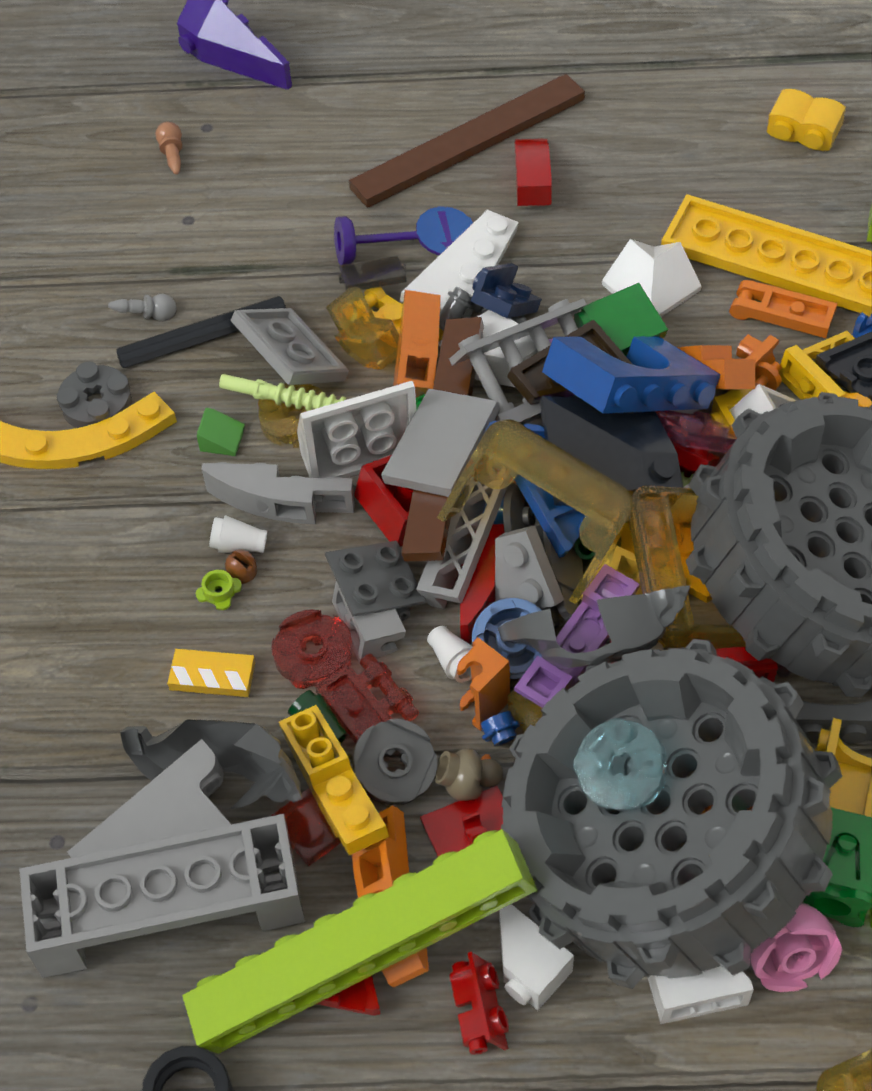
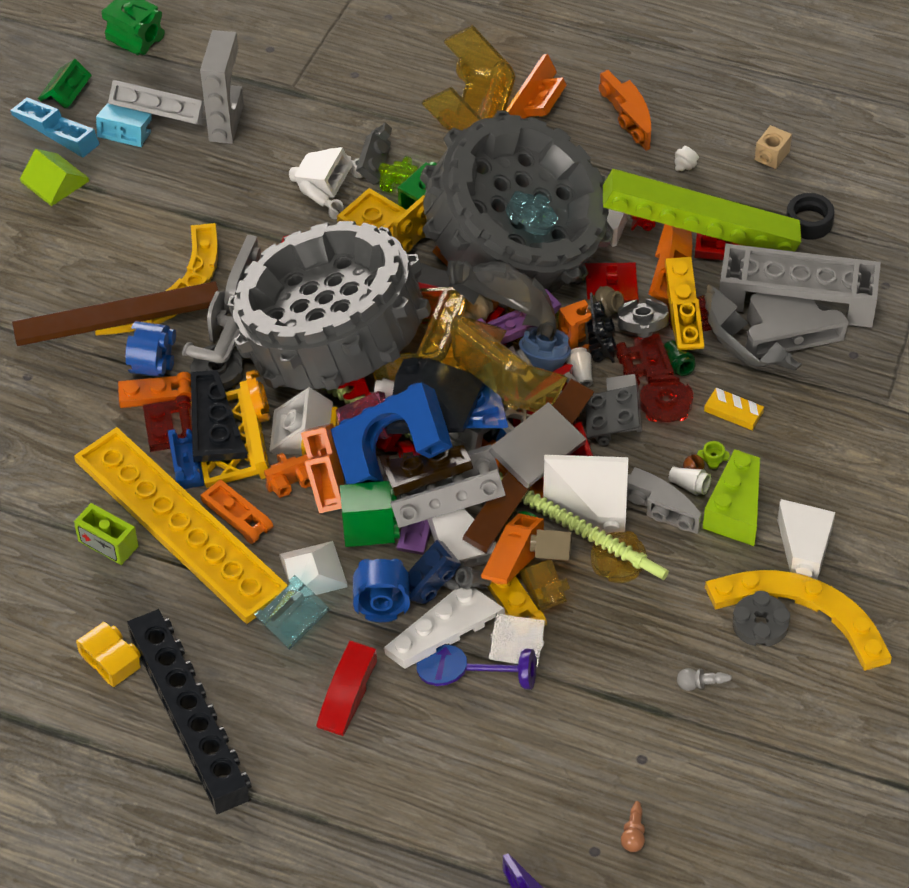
camera: 160 degrees left, 5 degrees down
(59, 506) = (804, 536): none -> white slope
(167, 521) = (734, 501): none -> lime wedge
(187, 335) = (669, 643): black axle -> none
(219, 433) = (678, 558): bright green slope -> none
(289, 346) = (605, 592): light grey tile -> none
(368, 354) = (551, 544): none -> dark tan arch
(446, 707) = (600, 332): none -> black hinge
(466, 140) = (379, 746): reddish brown tile -> none
(551, 257) = (381, 589): none -> blue brick
(629, 210) = (297, 618): none -> clear light blue plate
(689, 100) = (222, 791): none -> black brick

